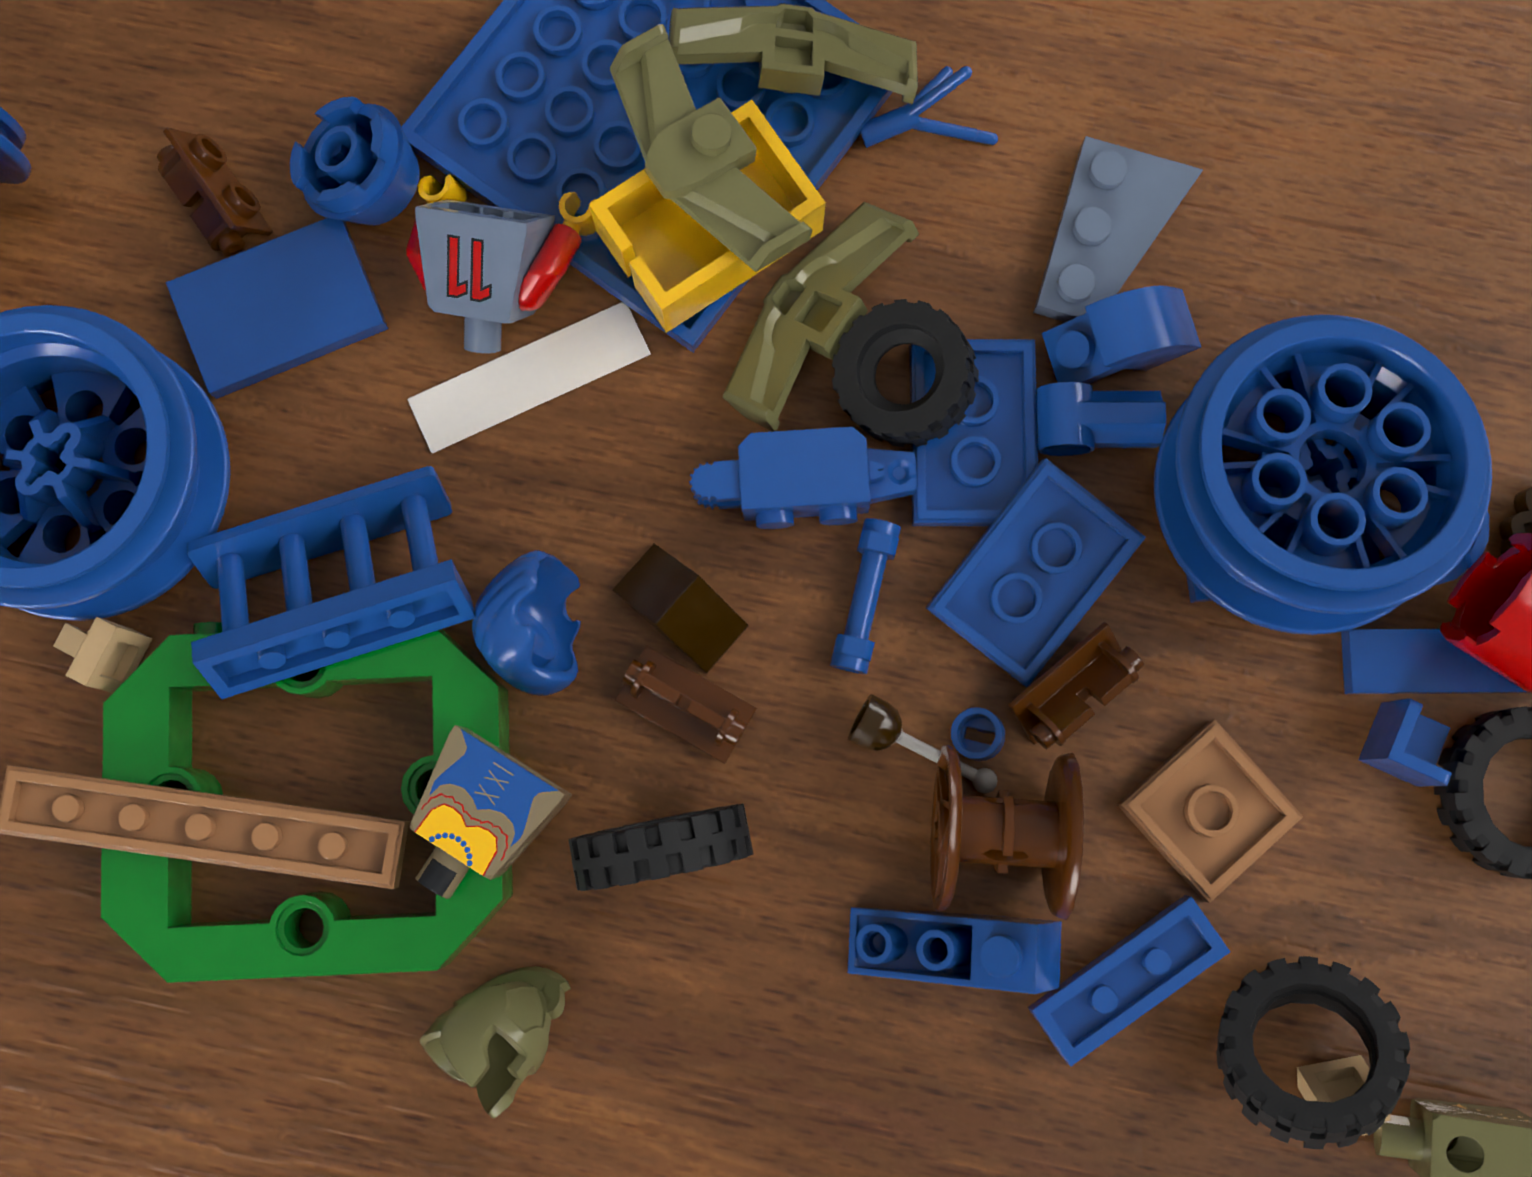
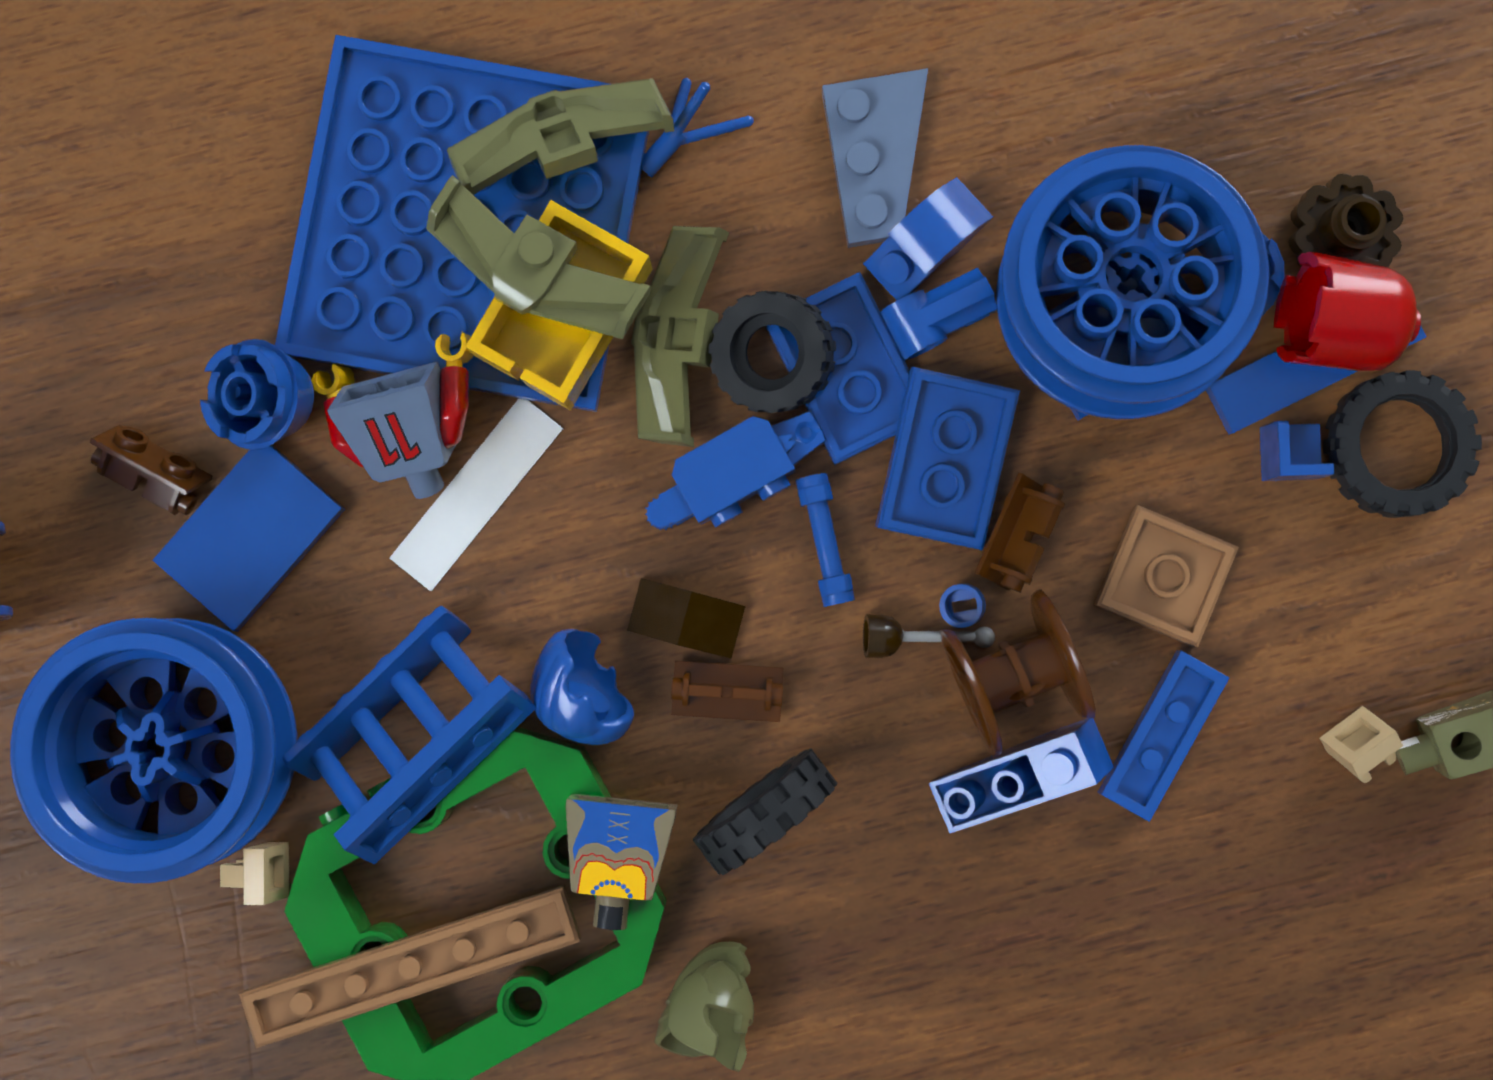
camera: 20 degrees left, 5 degrees up
(1357, 1004) = (1313, 669): black tyre -> none

